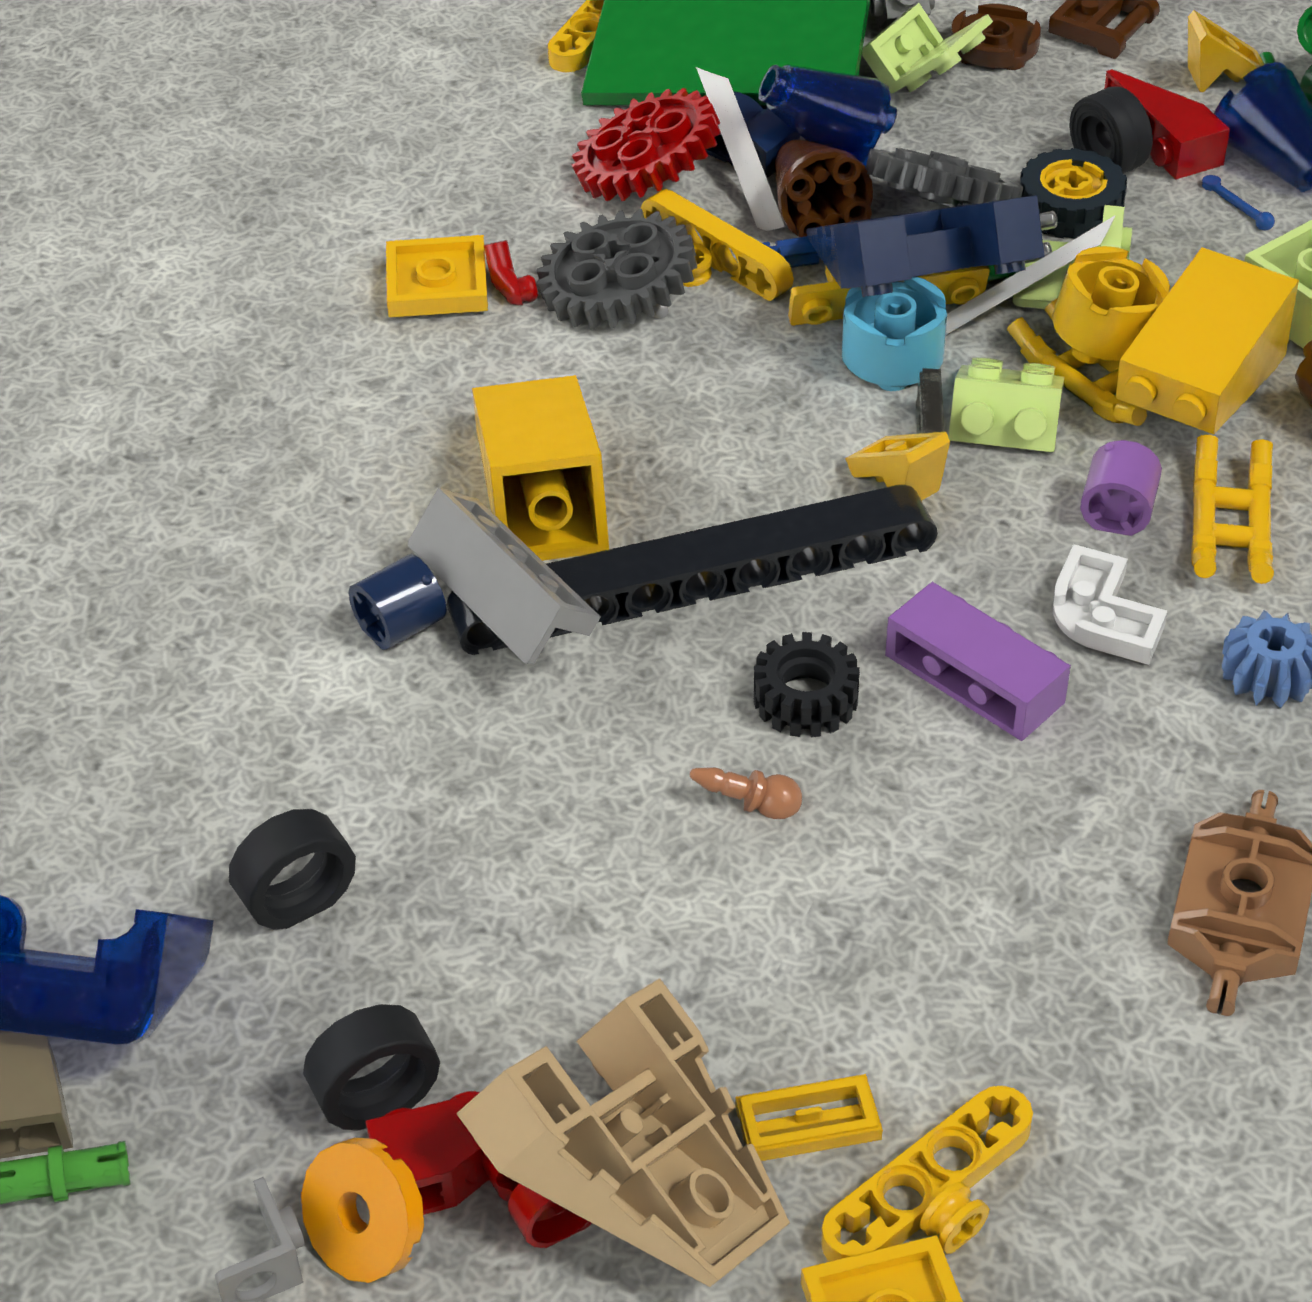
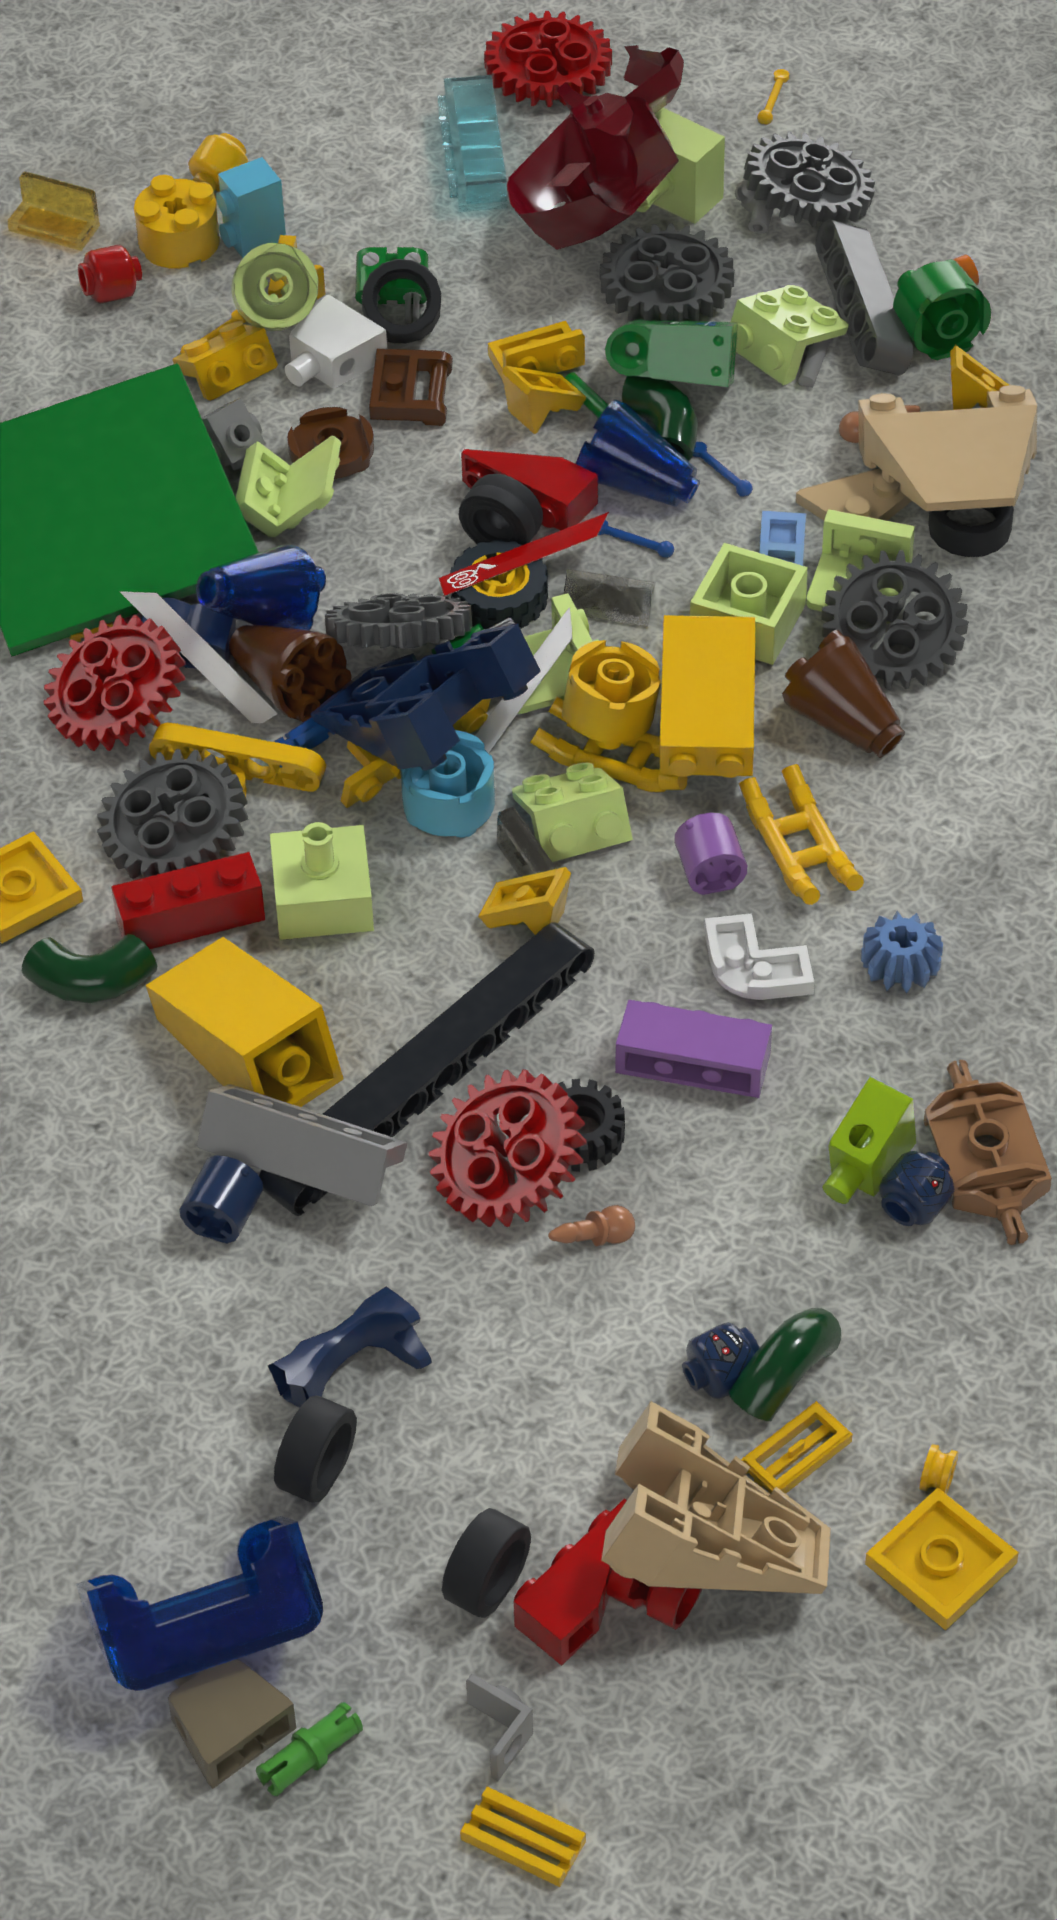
camera: 30 degrees left, 5 degrees up
(331, 1215) = (550, 1690): light orange tile -> none
(364, 788) = (379, 1322): none -> dark blue animal
(438, 368) = (89, 976): none -> dark green cylinder
(504, 278) = (76, 864): red arm -> none
(572, 339) = (190, 901): none -> red brick
(707, 670) = (469, 1162): none -> red gear
(710, 367) = (321, 881): none -> yellowish green brick
(788, 981) = (718, 1358): none -> dark blue head
(853, 1007) = (784, 1361): none -> dark green cylinder
(921, 1172) = (901, 1452): yellow beam -> none
(1068, 170) = (522, 555): none -> red sticker
(1103, 826) = (869, 1140): none -> lime torso
(1129, 899) = (916, 1188): none -> dark blue head
(1172, 234) = (611, 596): none -> clear smoke slope
(1257, 26) = (541, 349): none -> yellow bracket

